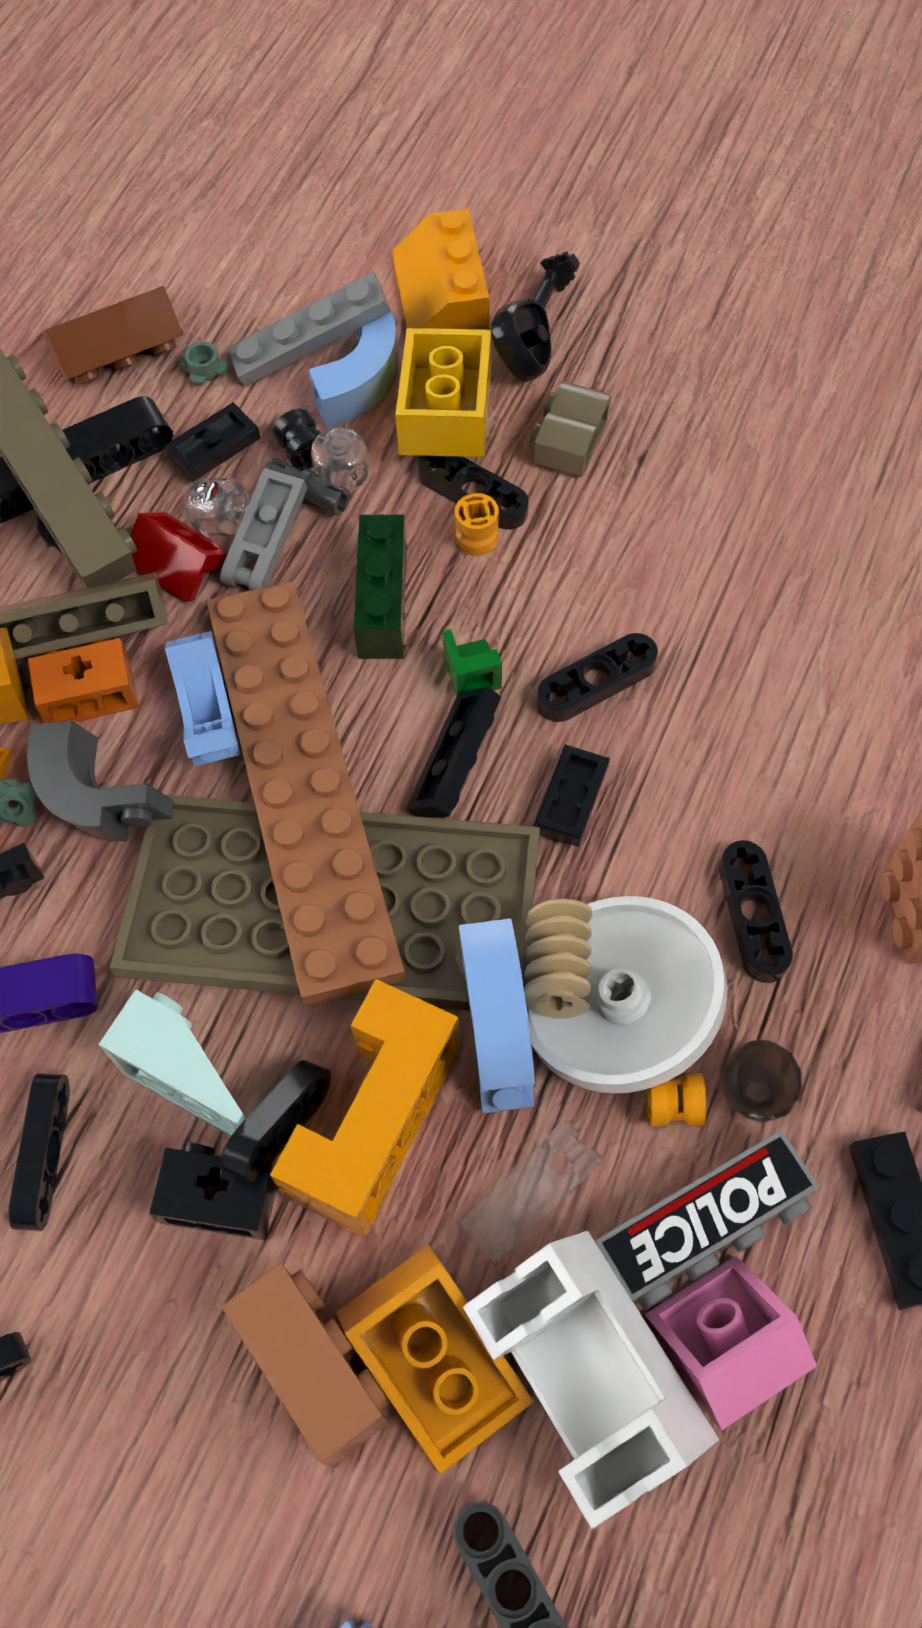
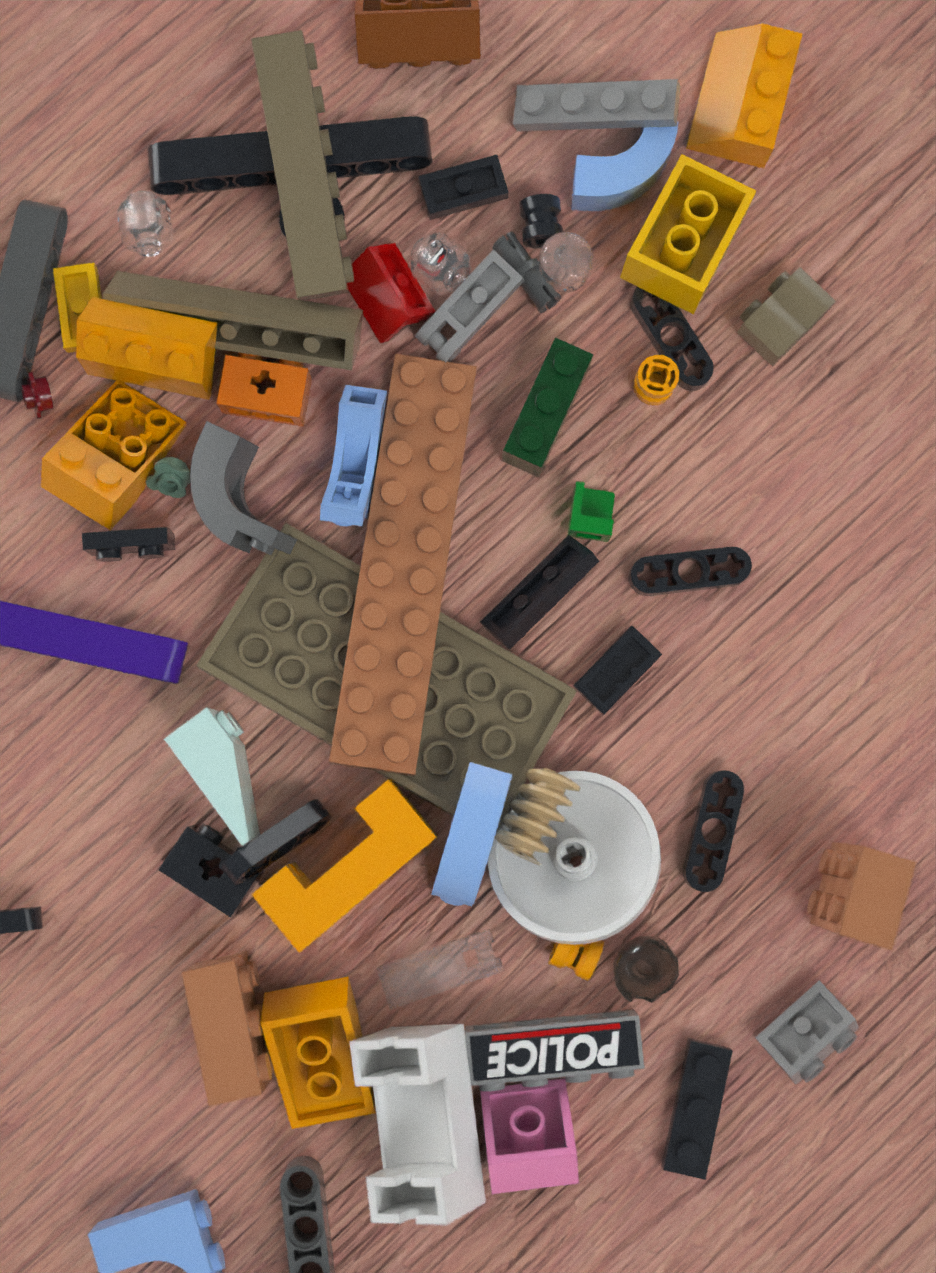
camera: 20 degrees right, 20 degrees up
(39, 1152) = (97, 780): black beam -> none
(202, 362) = (488, 81): sand green plate -> none
(522, 327) = (791, 190): black piece -> none

